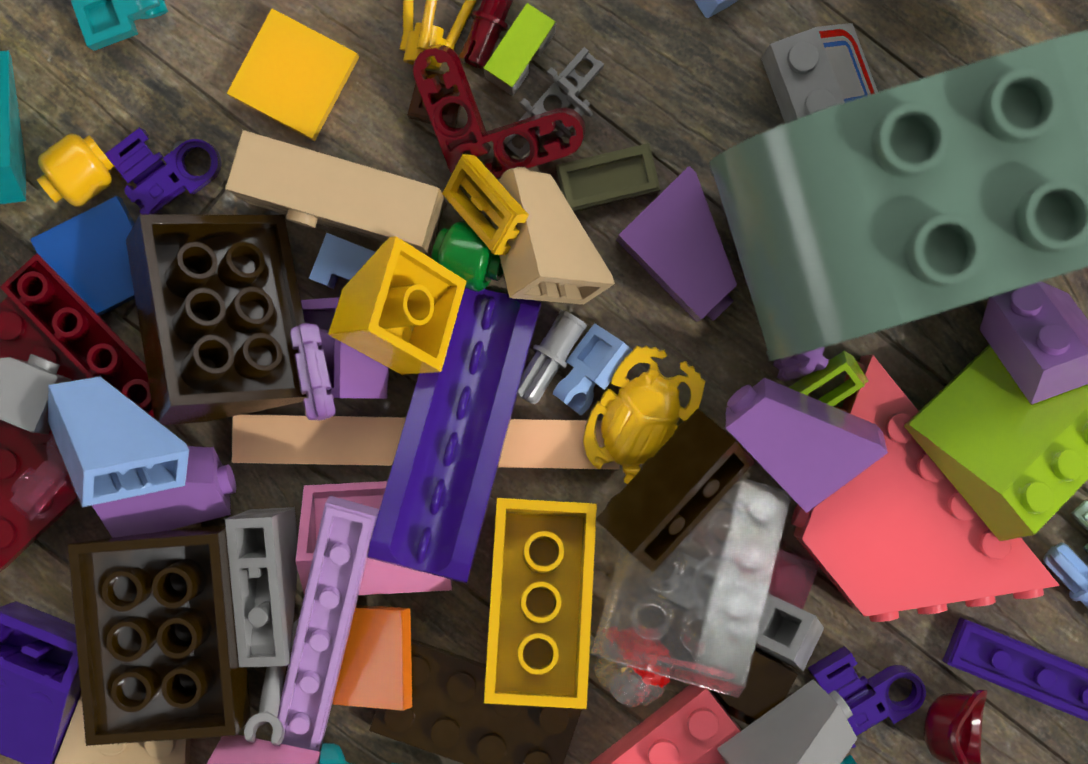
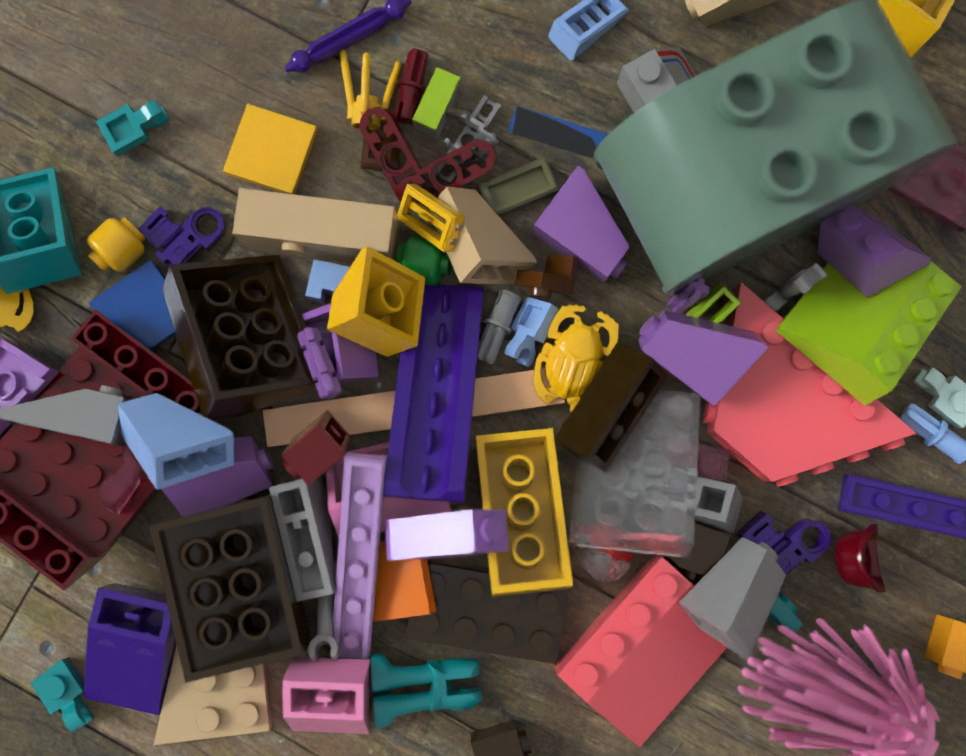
camera: 20 degrees left, 5 degrees down
(293, 480) = (316, 448): none -> dark red brick
(439, 621) = (447, 535): none -> slope
(637, 308) = (557, 278): none -> reddish brown bracket
(675, 113) = (555, 132): none -> black sticker
(944, 368) = (798, 283): none -> light grey bar

